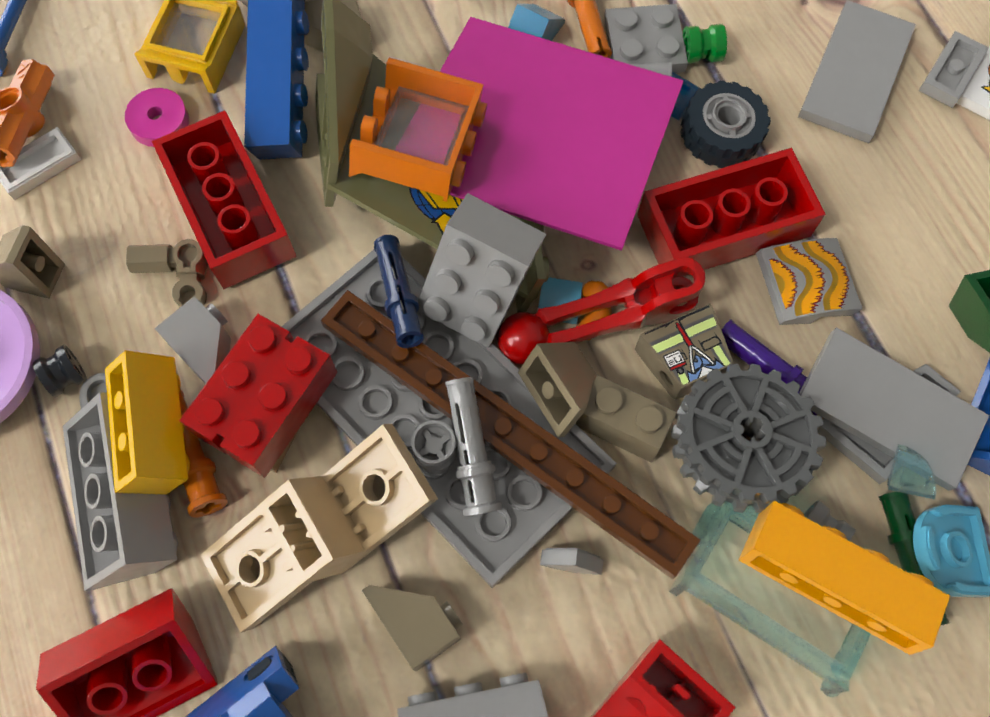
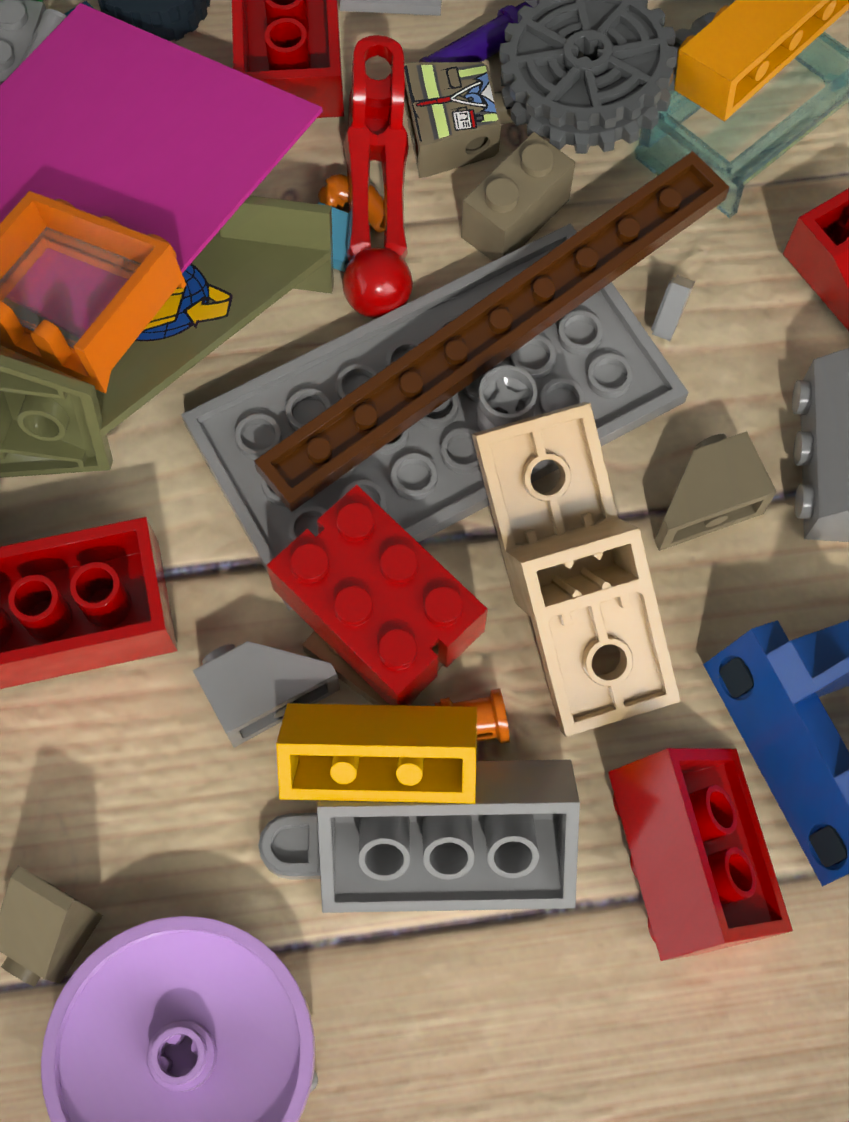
camera: 75 degrees left, 0 degrees up
(59, 370) = (241, 894): black wheel -> none
(185, 257) = (112, 690): dark tan bar -> none
(407, 324) = (298, 394): dark blue pin -> none
(475, 467) = (552, 356): light grey pin -> none
(478, 269) = (296, 275): light grey brick -> none
(559, 383) = (464, 246): dark tan slope -> none

